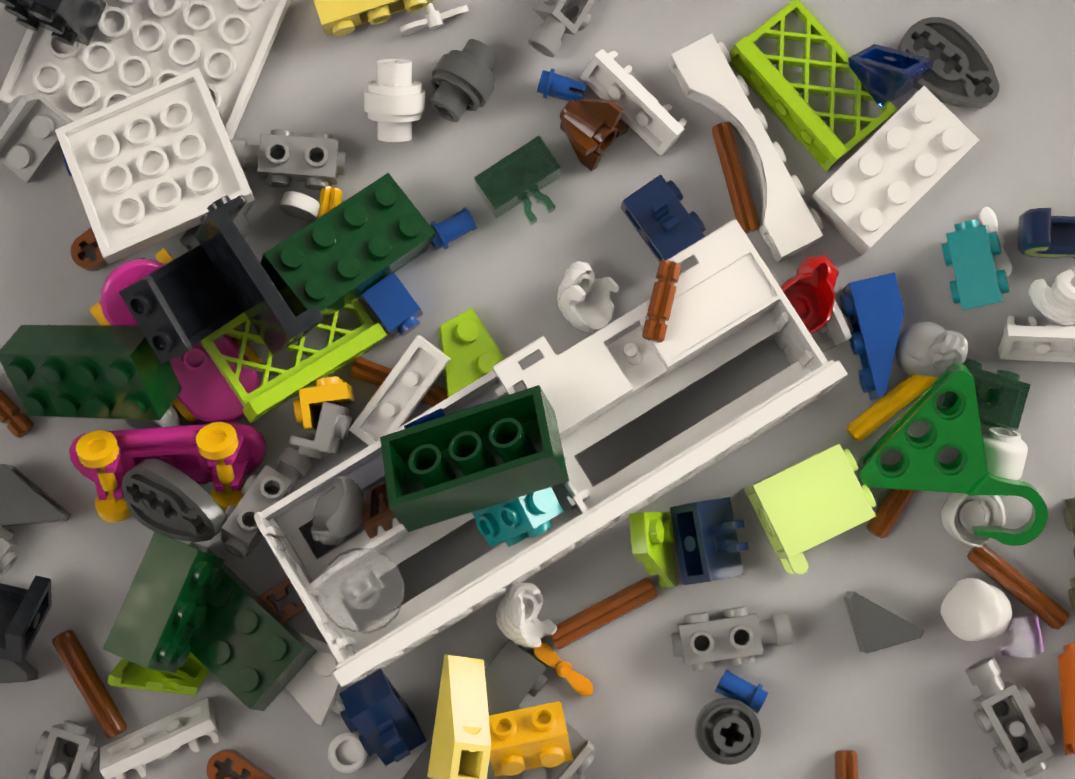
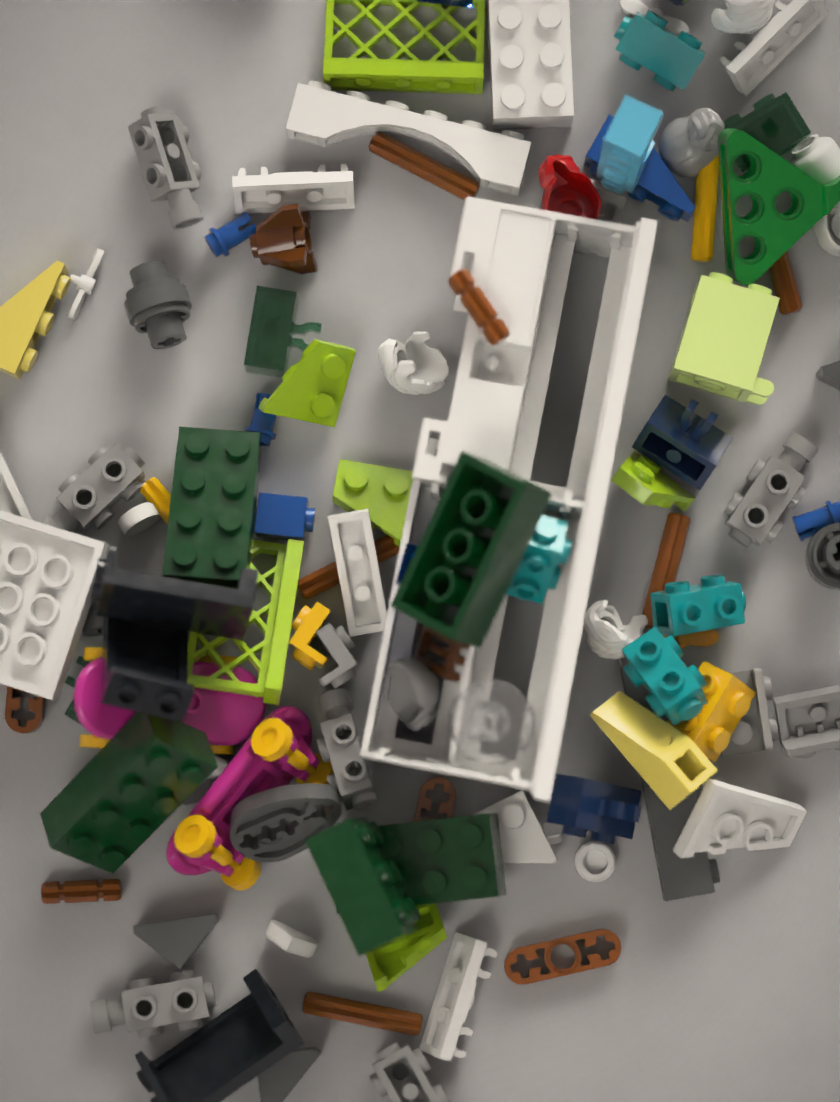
camera: 45 degrees left, 0 degrees up
(95, 584) = (290, 939): none -> white tile
(394, 100) = (125, 371): white piece -> none
(505, 240) = (314, 385): none -> lime wing
(518, 697) = (670, 684): none -> teal brick
(596, 661) = (698, 607): none -> teal brick
(662, 218) = (408, 251): dark blue brick -> none
(884, 302) = (628, 145): none -> medium azure arch

